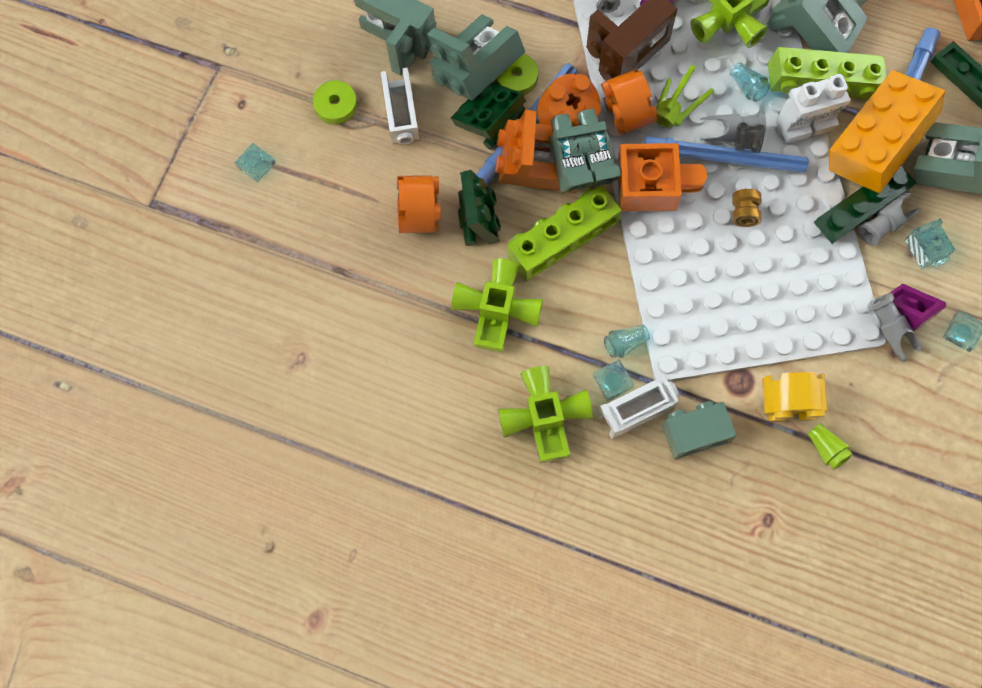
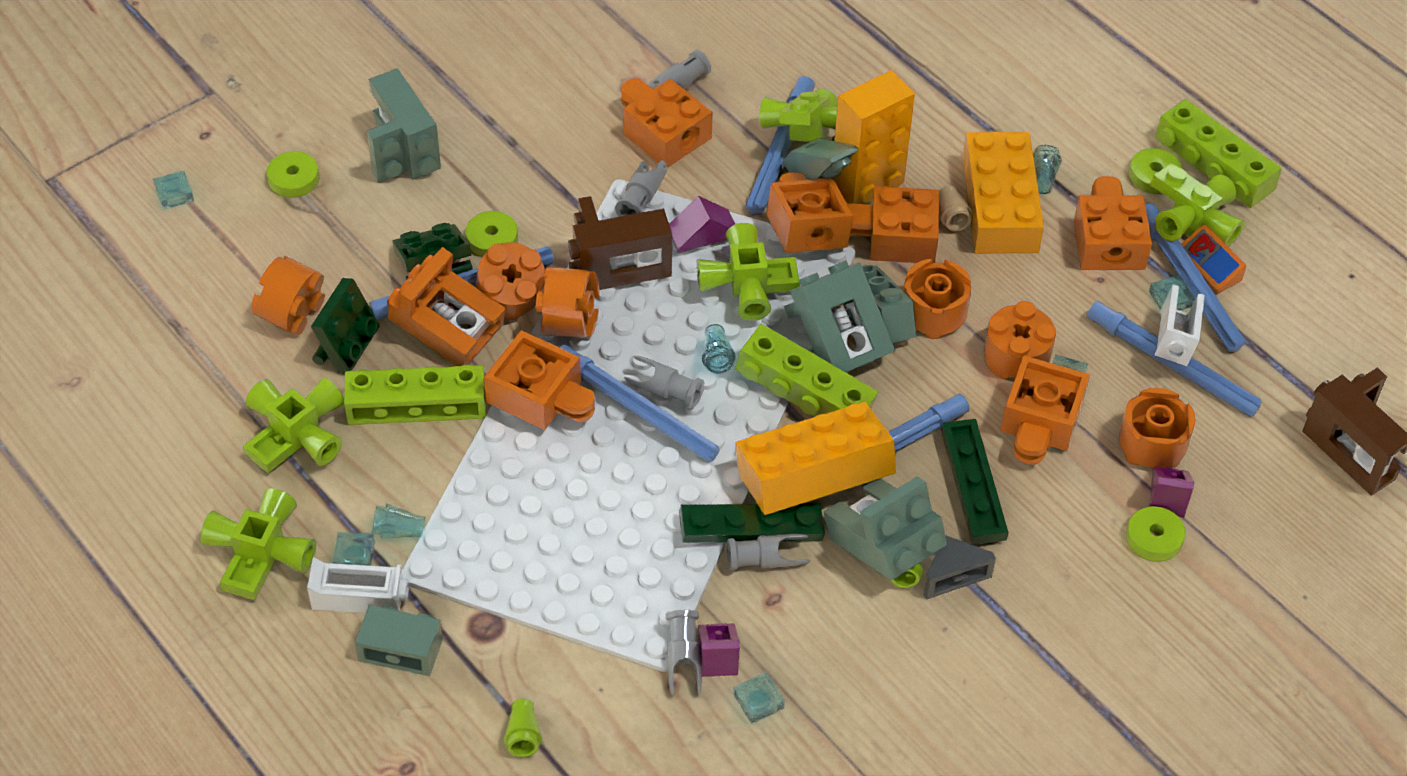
camera: 25 degrees right, 20 degrees down
(400, 109) = (347, 206): white window -> none
(473, 57) = (453, 193): sand green brick -> none
(582, 152) = (480, 309): sand green hips -> none
(669, 111) = (610, 333): lime plant -> none
(746, 207) = (612, 462): pearl gold wheel -> none
(749, 137) = (663, 392): clear smoke wheel -> none
(795, 395) = (517, 654): yellow brick -> none
(813, 109) = (754, 388): white hips -> none
(930, 244) = (789, 596): clear light blue brick -> none

